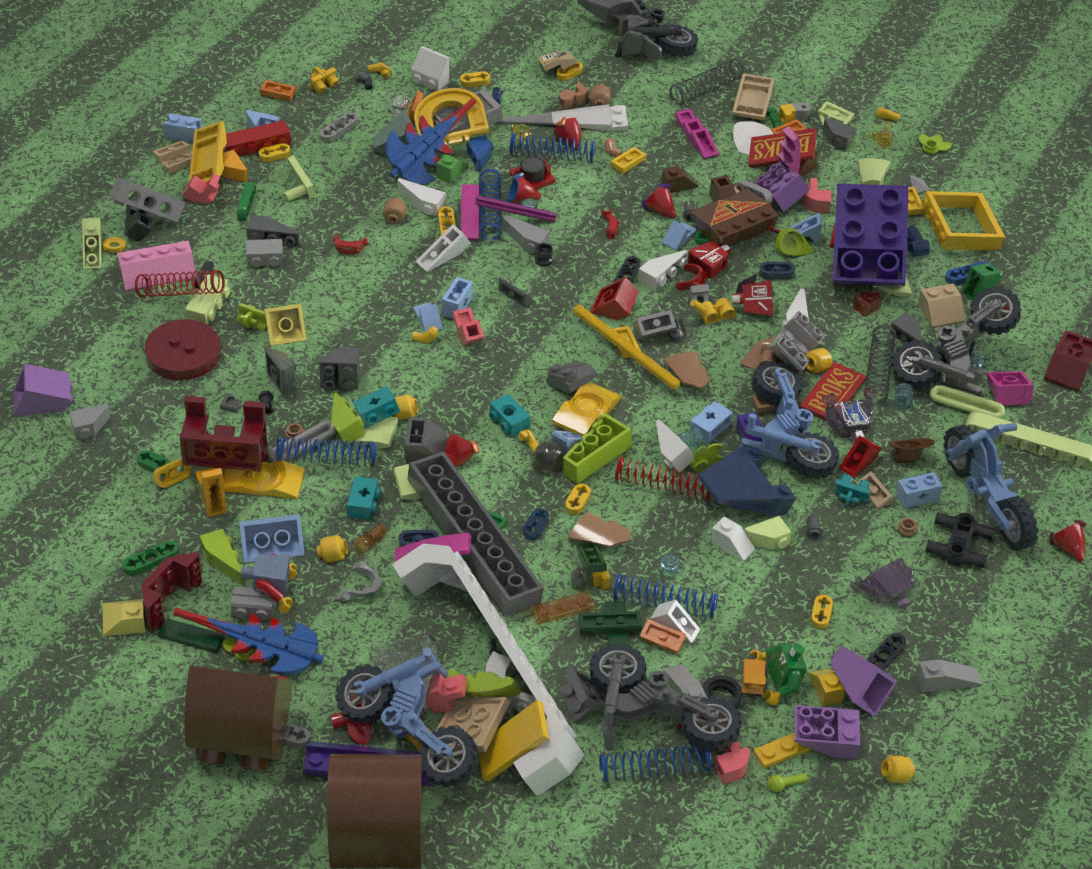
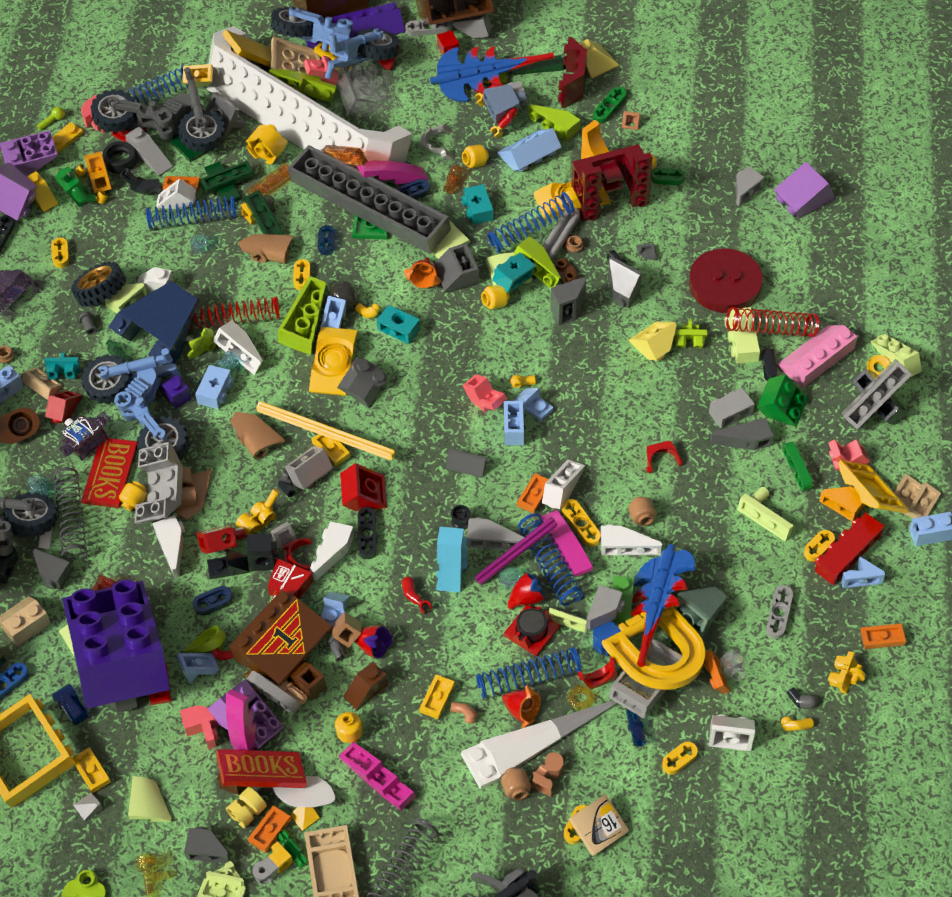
camera: 160 degrees right, 10 degrees up
(141, 531) = (631, 117): none -> nougat slope
(219, 243) = (782, 400): none -> green slope
(321, 409) = (565, 271): none -> reddish brown plate
(472, 253) = (533, 494): none -> orange plate
(474, 148) = (604, 607): none -> light grey slope
(478, 558) = (346, 154): none -> clear orange plate
(501, 133) = (590, 678): none -> red helmet
(504, 169) = (568, 619): none -> yellowish green slope
(551, 634) = (266, 143): none -> yellow brick
(570, 216) = (452, 558): none -> medium azure wedge
(591, 735) = (201, 73): none -> yellow slope
(678, 208) = (346, 629): none -> medium nougat brick
(705, 158) = (348, 727): none -> yellow head
(707, 651) = (141, 185): none -> black arm
(723, 274) = (262, 552): none -> black brick
(780, 550) = (98, 284): none -> black wheel
(790, 480) = (115, 349): none -> clear green cylinder

